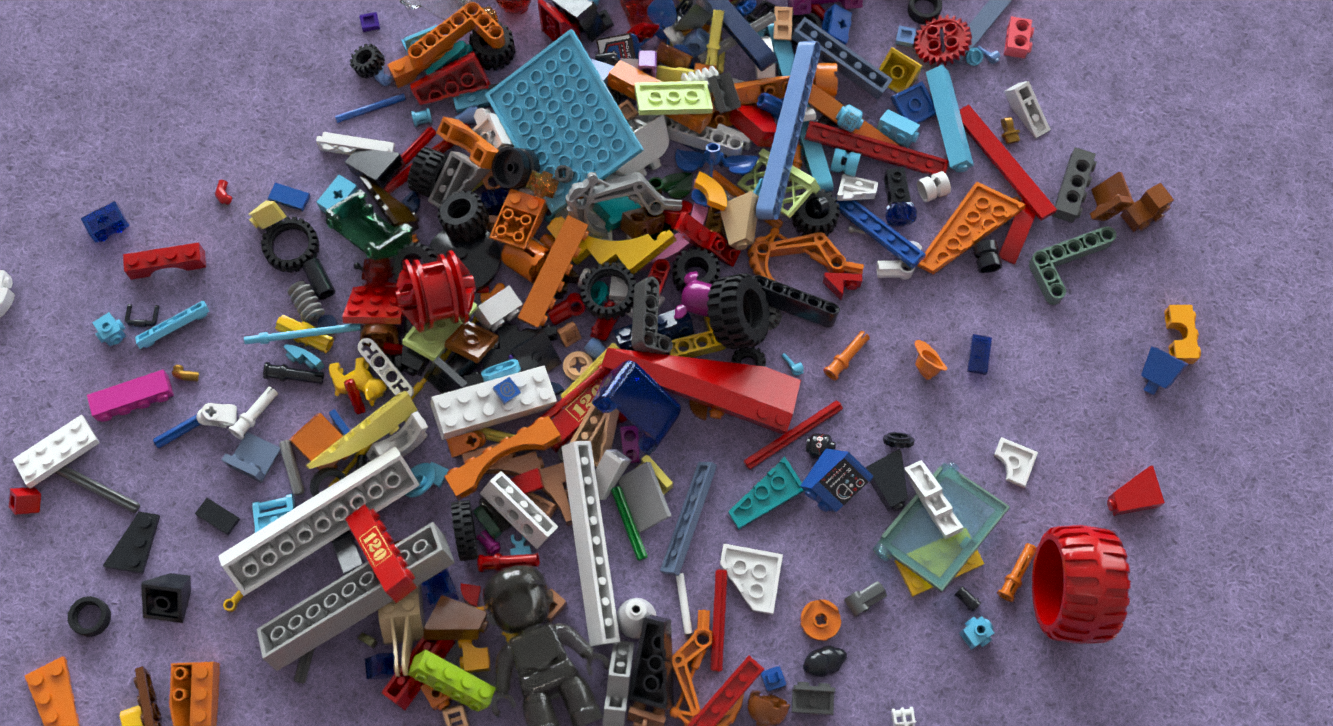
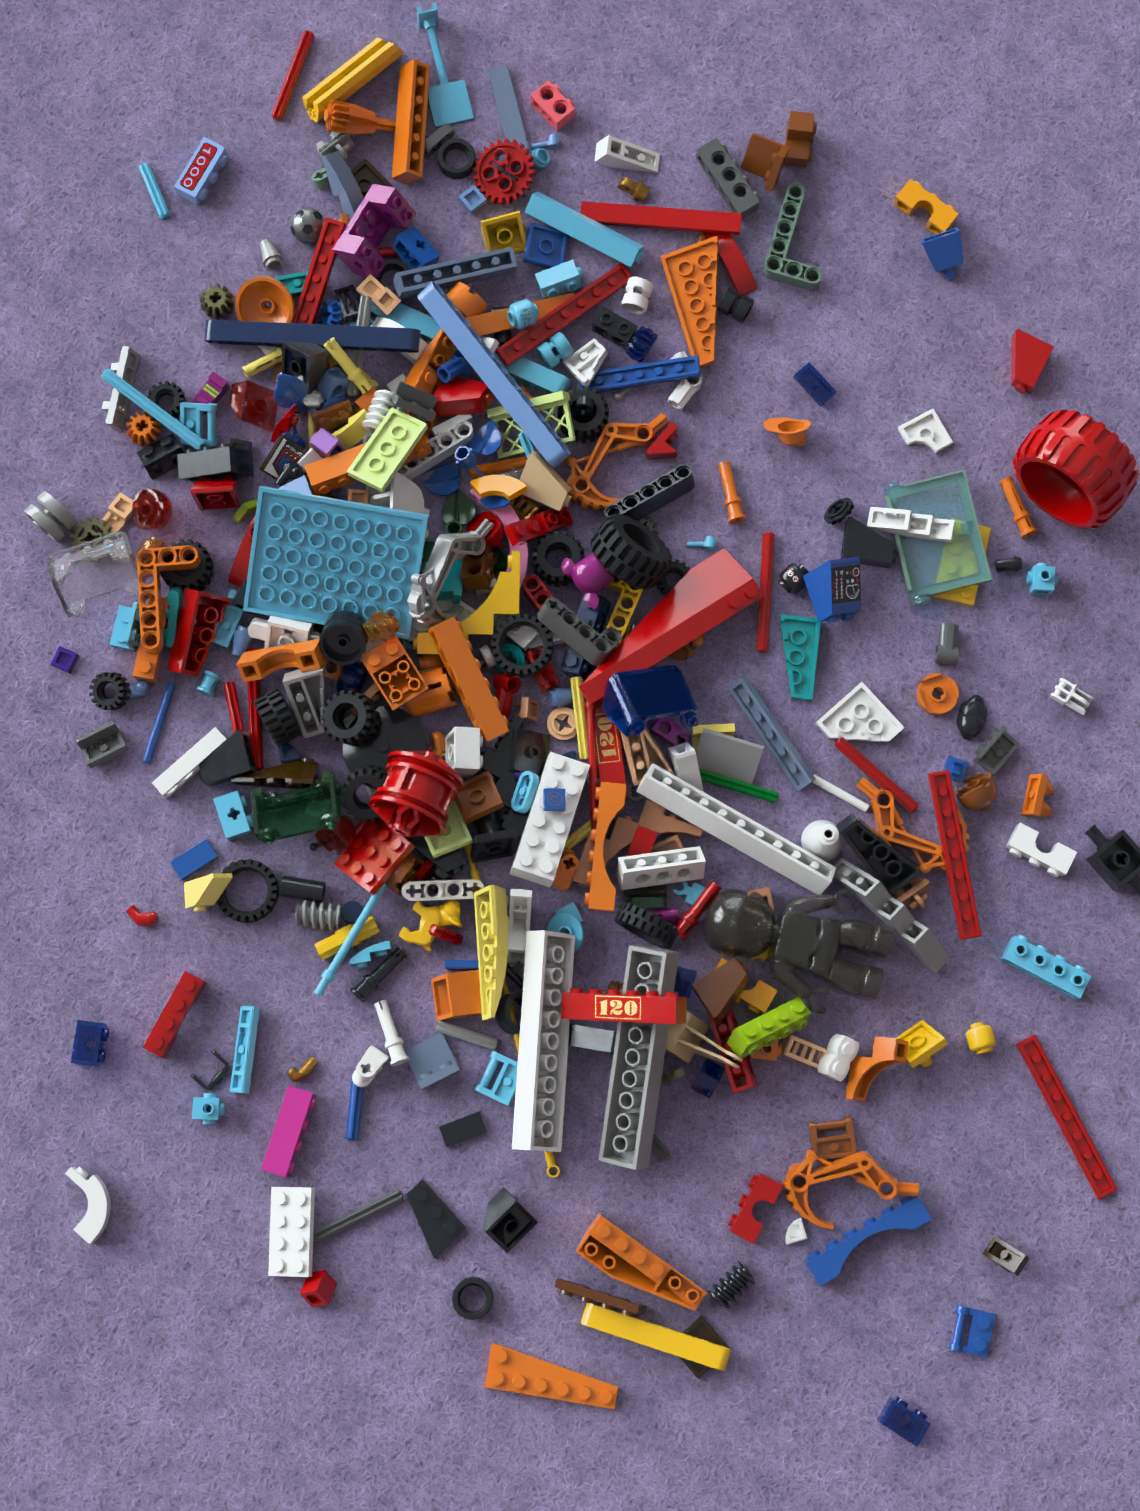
camera: 55 degrees left, 10 degrees up
(326, 83) = (102, 744): none -> dark grey bracket
(471, 593) = (698, 961): red tile -> none
(569, 174) = (382, 605): dark grey bush -> none

